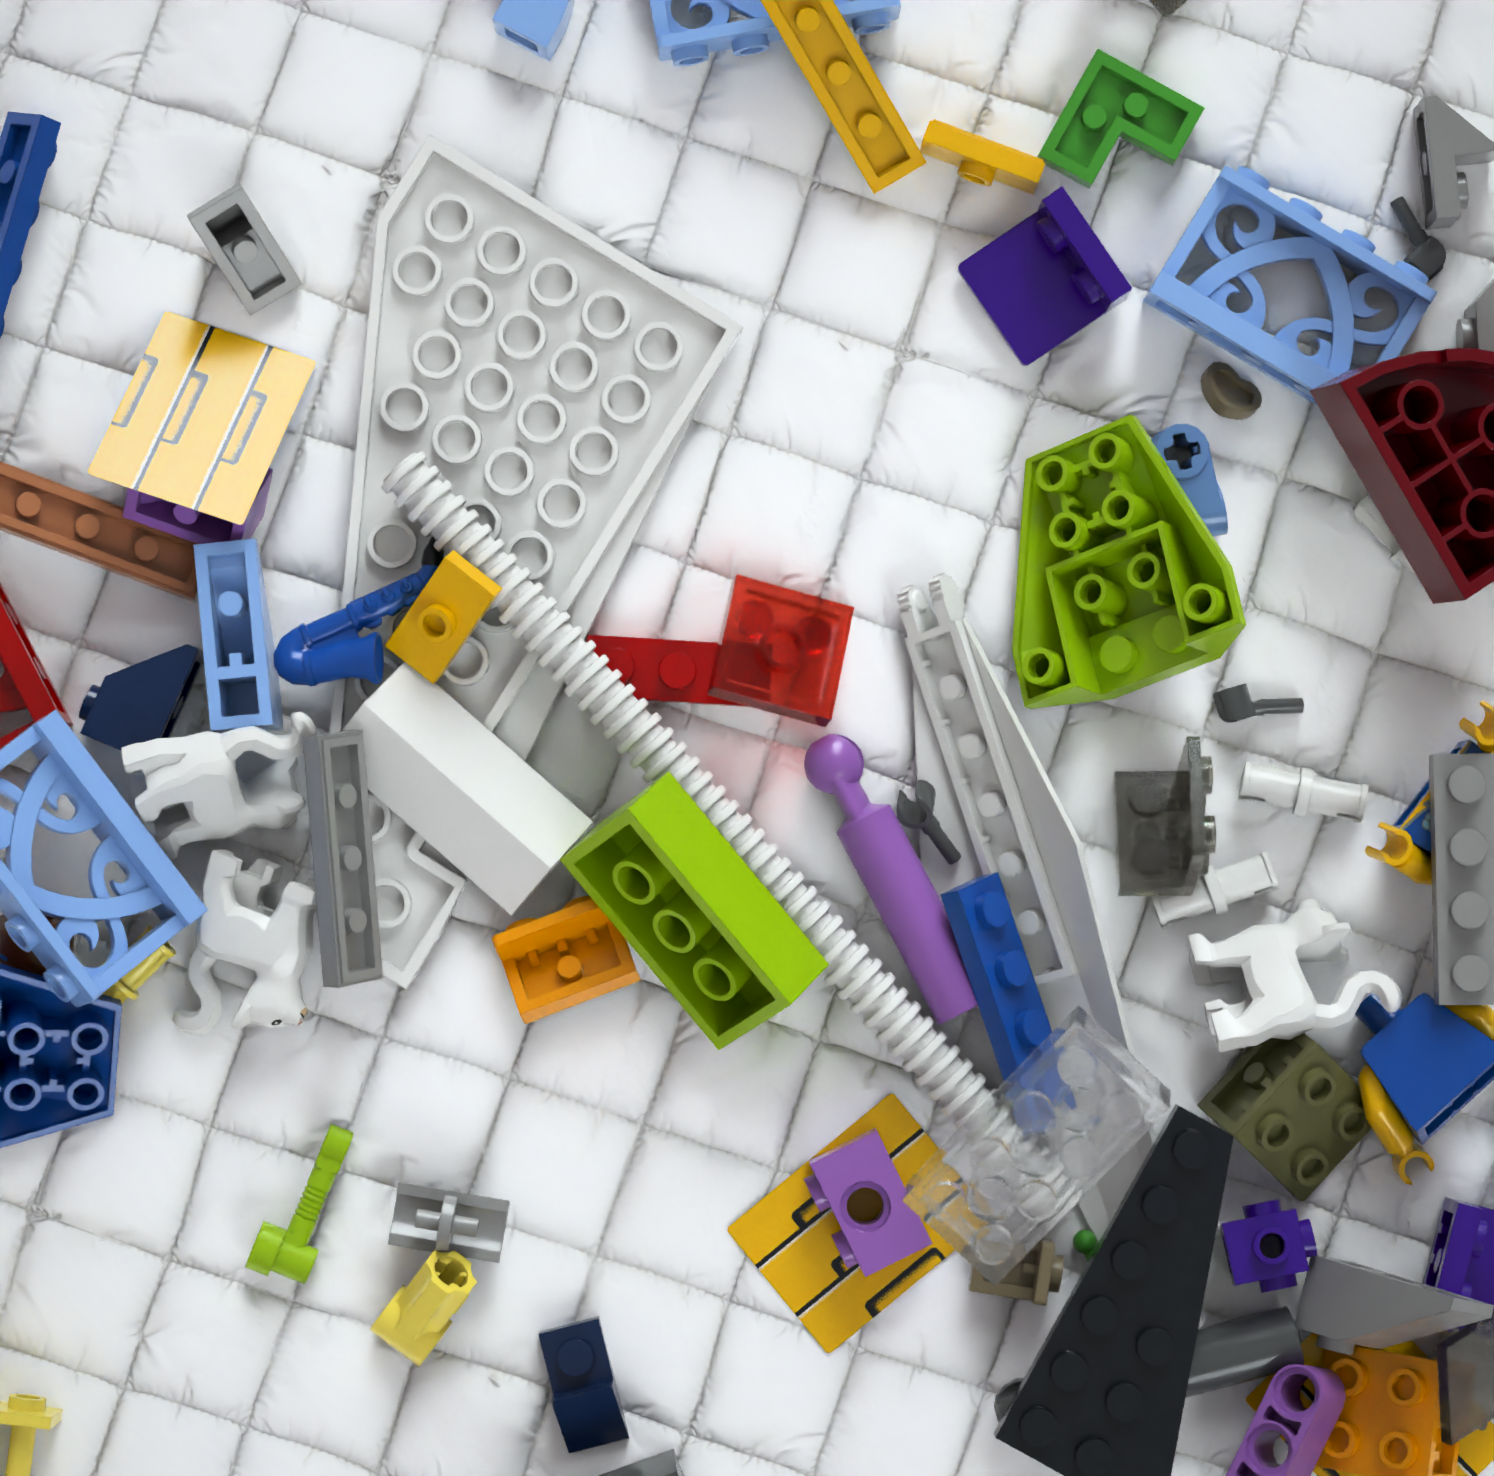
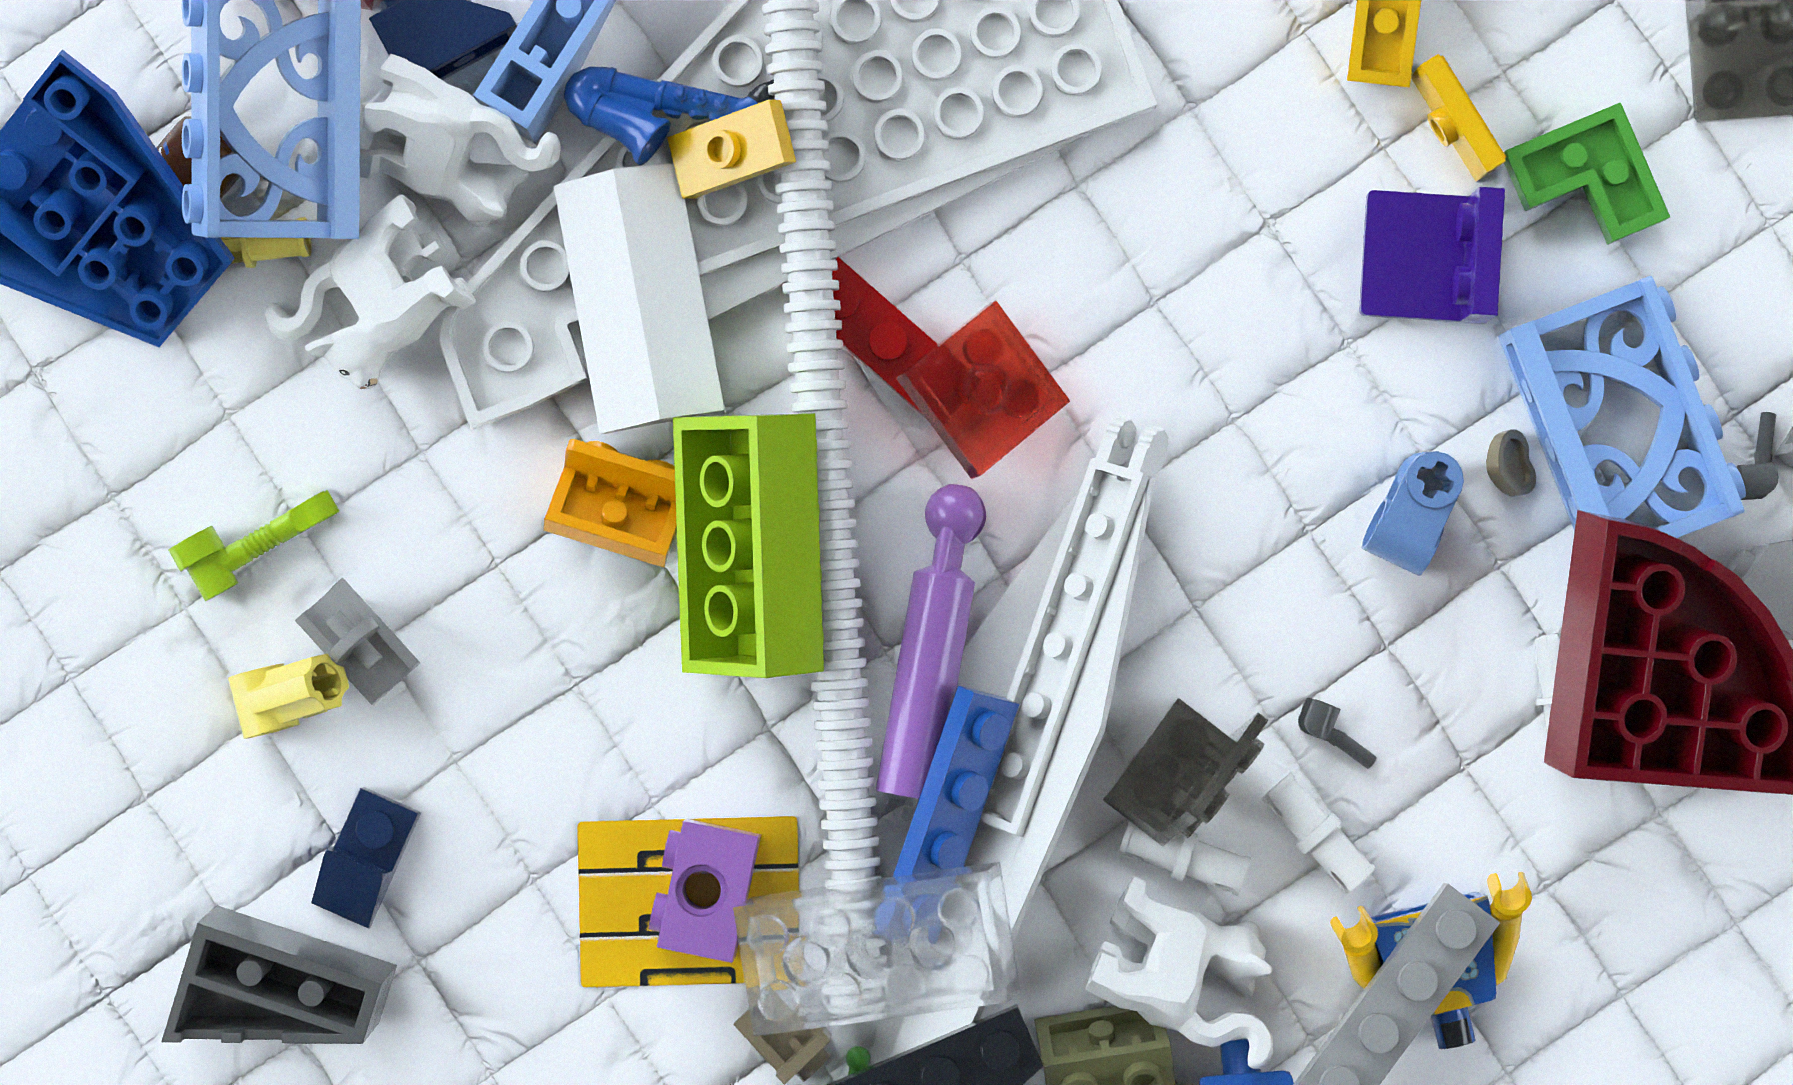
camera: 40 degrees right, 0 degrees up
(342, 858) = (499, 280): light grey tile -> none
(920, 815) = (993, 610): dark grey hand -> none
(1114, 573) = (1302, 536): lime wedge -> none

